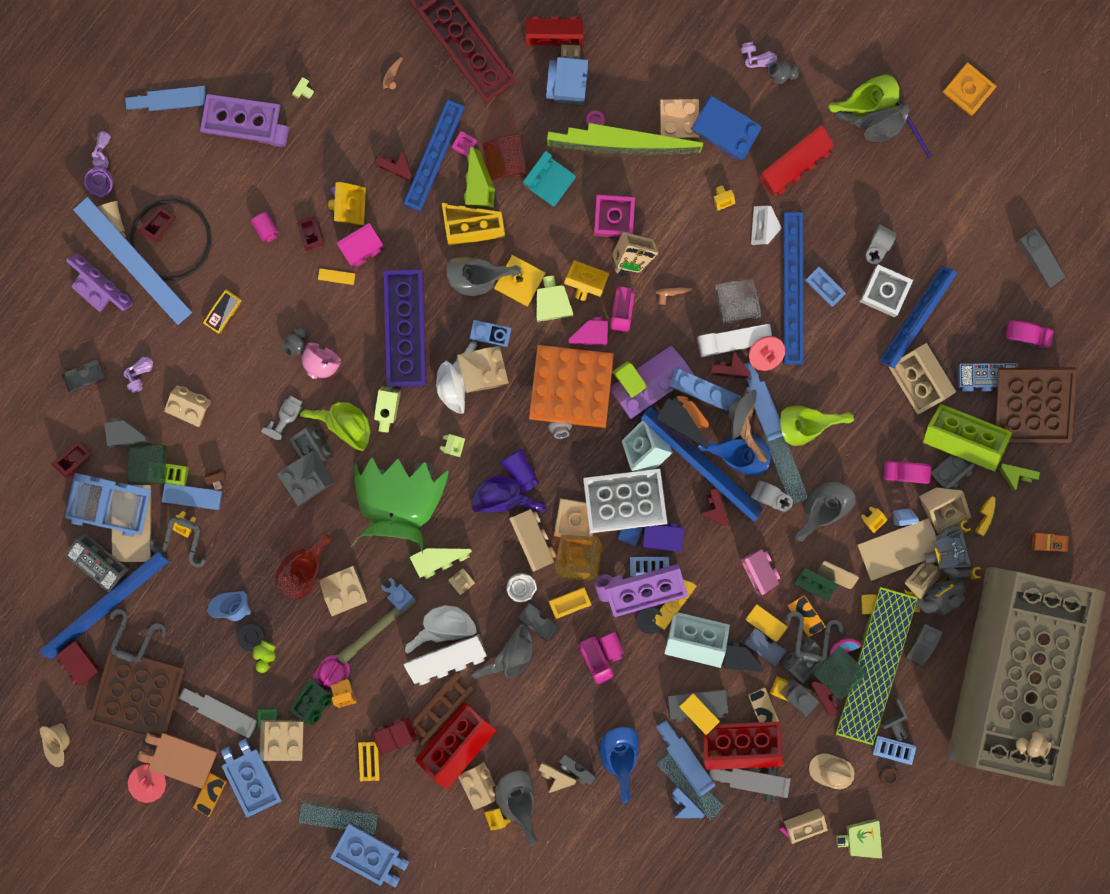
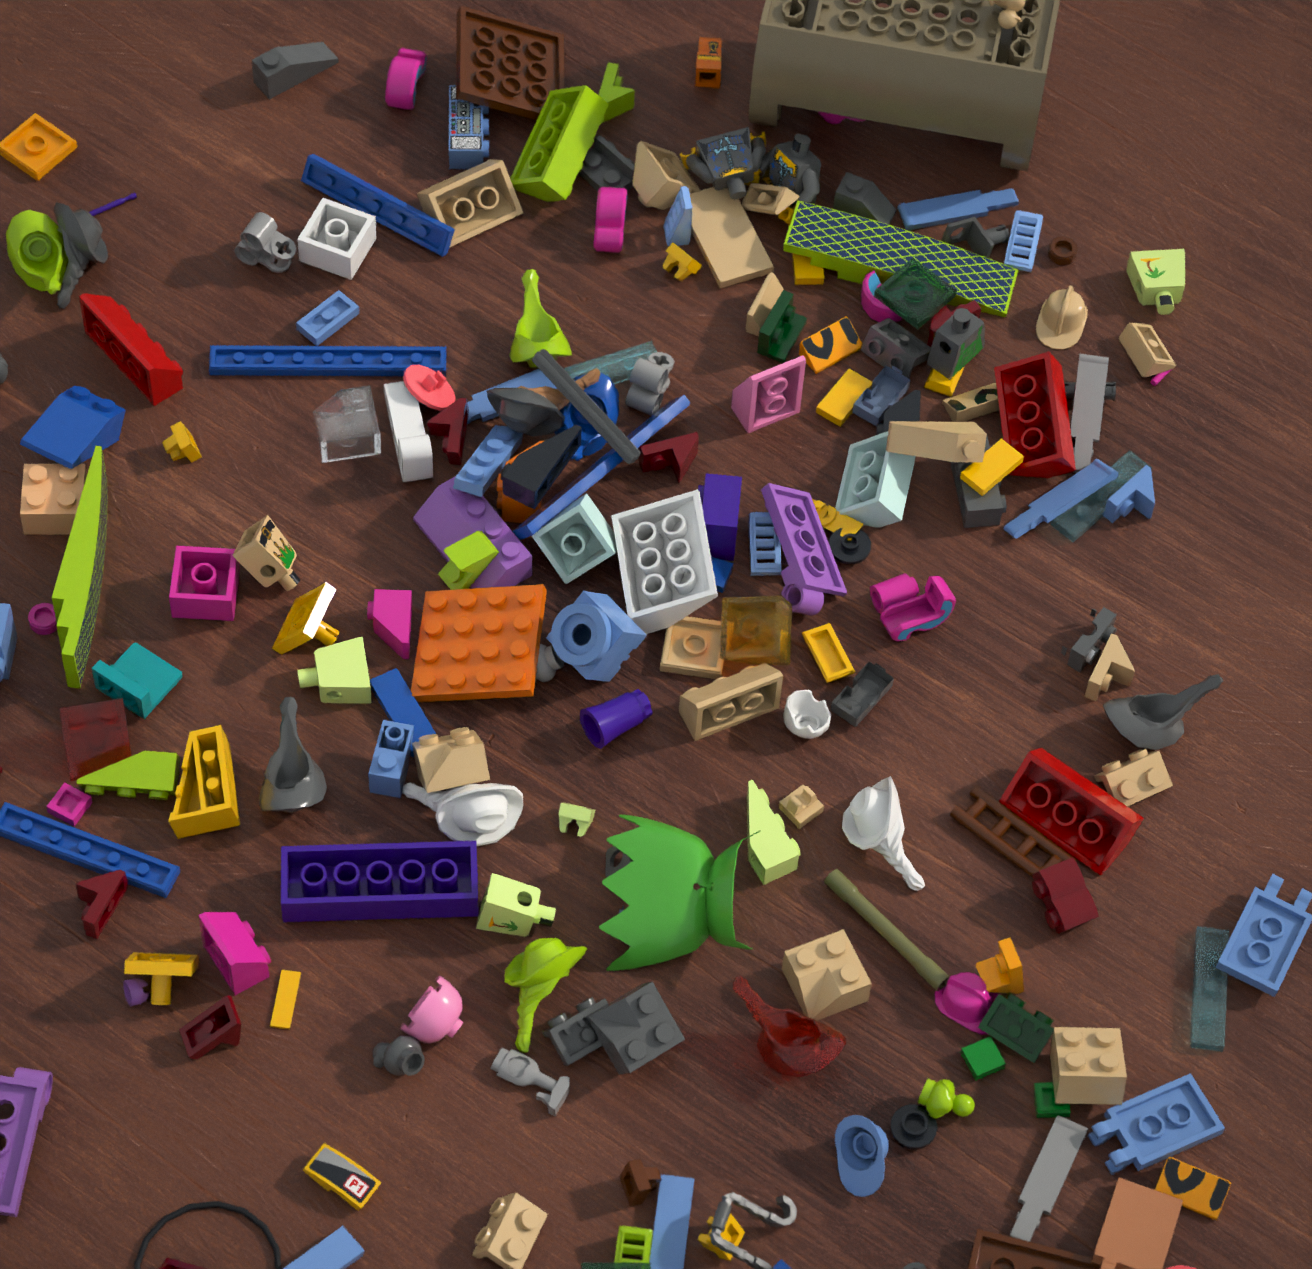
camera: 95 degrees left, 30 degrees down
(265, 227) = (194, 1105): dark pink brick -> none
(293, 680) = (983, 1058): none -> green tile
(361, 761) = (1109, 937): yellow tile -> none
(398, 595) = (831, 890): medium blue plate -> none
(445, 659) = (929, 817): white slope -> none
(496, 819) = (1184, 753): yellow tile -> none
(500, 495) = (658, 746): dark purple hat -> none
(513, 657) = (915, 715): dark grey hat -> none
(522, 286) = (315, 720): yellow tile -> none
(528, 341) = (400, 704): none -> blue tile
(569, 457) = (594, 636): none -> medium blue piece
(619, 754) = (1070, 580): blue hat -> none
(622, 309) = (355, 575): dark pink animal -> none
(663, 293) = (328, 516): nougat bar -> none
(711, 681) = (937, 440): none -> tan slope
(736, 452) = (586, 406): none -> dark grey axle
(764, 225) = (228, 396): white slope -> none
(806, 655) = (846, 348): dark grey piece -> none
(826, 505) = (662, 313): dark grey hat -> none
(925, 705) = (954, 208): none -> medium blue piece
(987, 511) = (665, 128): yellow slope -> none

